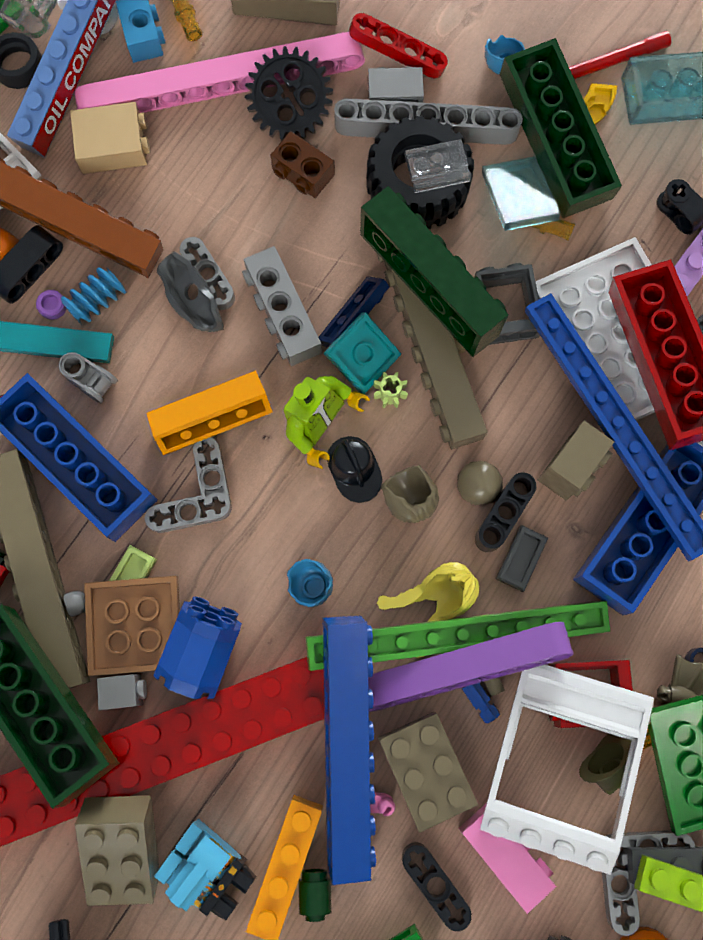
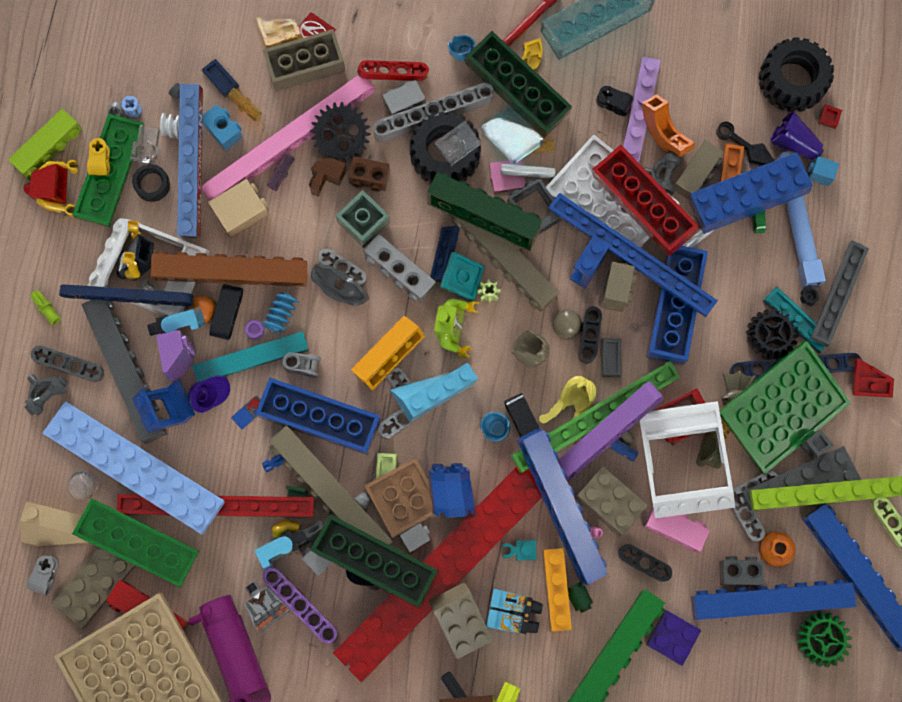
camera: 25 degrees left, 0 degrees up
(188, 115) = (280, 172): none -> clear purple pin
(202, 867) = (511, 607): medium azure piece -> none
(237, 494) = (430, 393): none -> medium azure wedge
(246, 137) = (326, 170): none -> reddish brown brick
(264, 217) = (363, 218): none -> sand green brick
(267, 782) = (524, 550): none -> teal plate
(354, 469) = (489, 348): black piece -> none
(355, 584) = (521, 414): none -> black beam
(489, 245) = (505, 182): none -> bright pink piece
(519, 250) = (527, 171): none -> white axle
(551, 407) = (589, 262): none -> blue window

